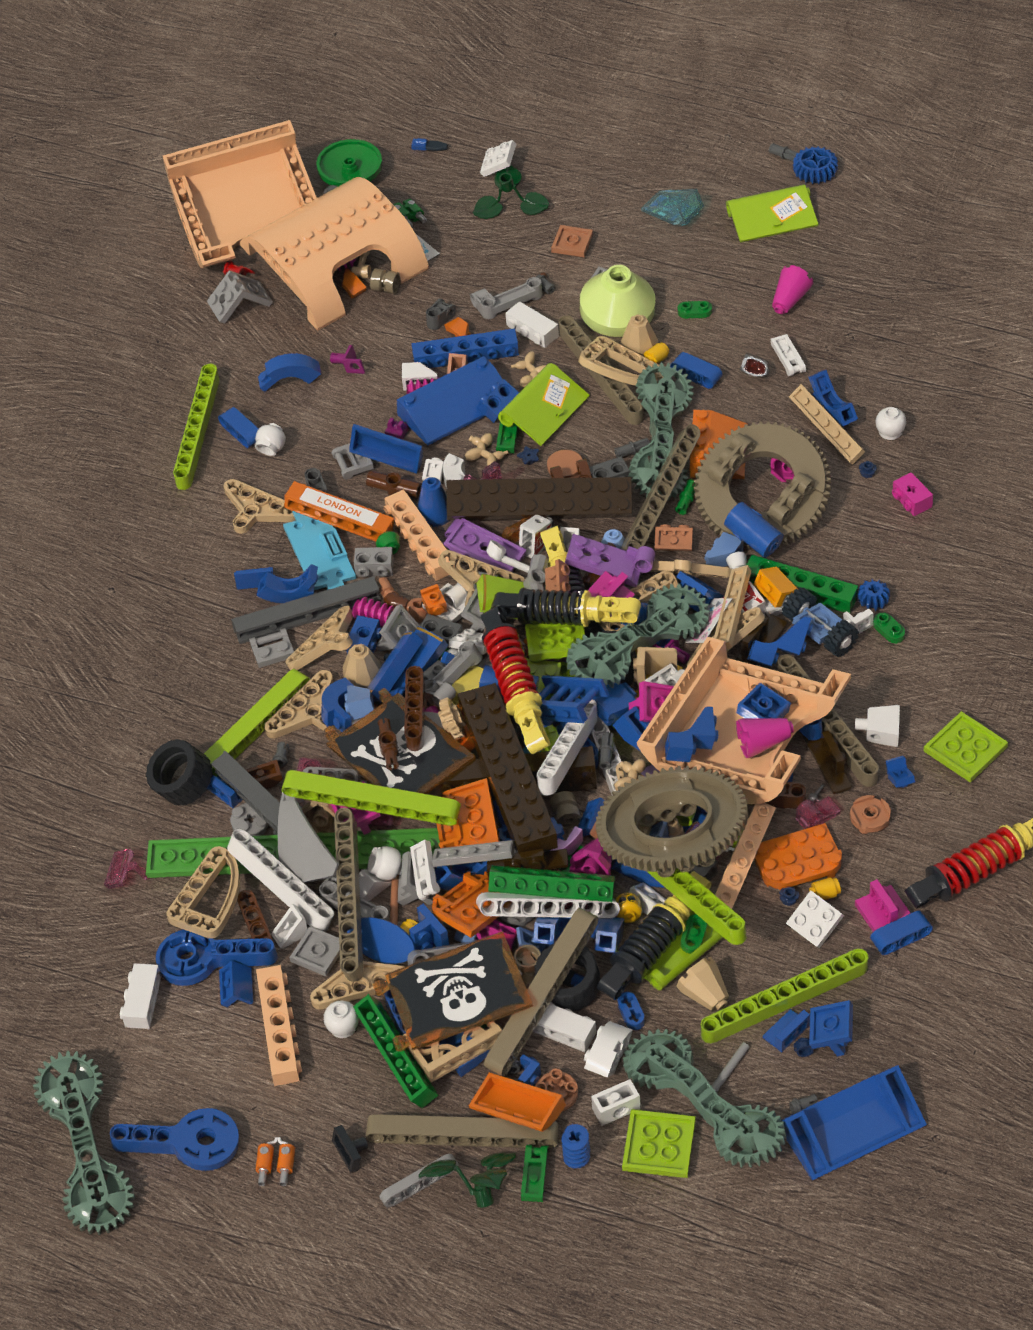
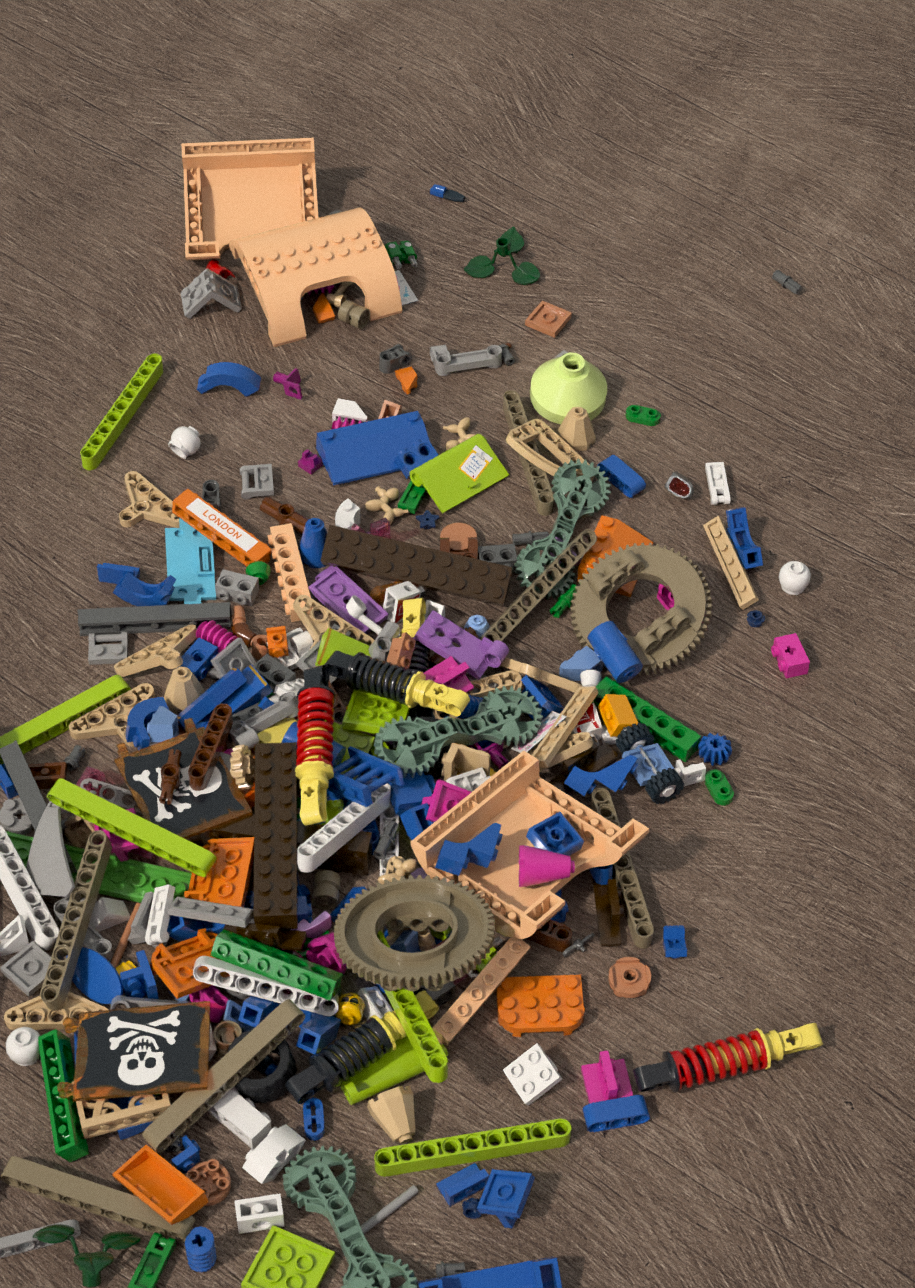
camera: 10 degrees right, 0 degrees up
(239, 426) = (161, 421): blue beam -> none
(348, 160) = (364, 190): green dish -> none
(385, 863) = (126, 896): white piece -> none
(386, 448) = (289, 479): blue slope -> none
(433, 468) = (328, 511): white bracket -> none
(489, 344) = (424, 400): blue brick -> none
(498, 158) = (506, 221): white plate -> none
(532, 324) = (478, 391): white brick -> none
(657, 353) = (589, 449): yellow brick -> none
(673, 538) = (537, 639): nougat bracket -> none
(674, 206) = (660, 308): clear light blue slope -> none
(693, 935) = (402, 1056): green plate -> none
(772, 213) = (753, 338): lime door -> none
(786, 899) = (516, 1046): dark blue plate -> none
(790, 288) = (742, 418): dark pink cone -> none
(813, 814) = (575, 963): clear pink plate -> none
(815, 165) = (812, 301): blue gear -> none
(826, 888) = (555, 1044): yellow brick -> none
(881, 725) = (674, 887): white torso -> none
(965, 746) = (752, 933): lime plate -> none

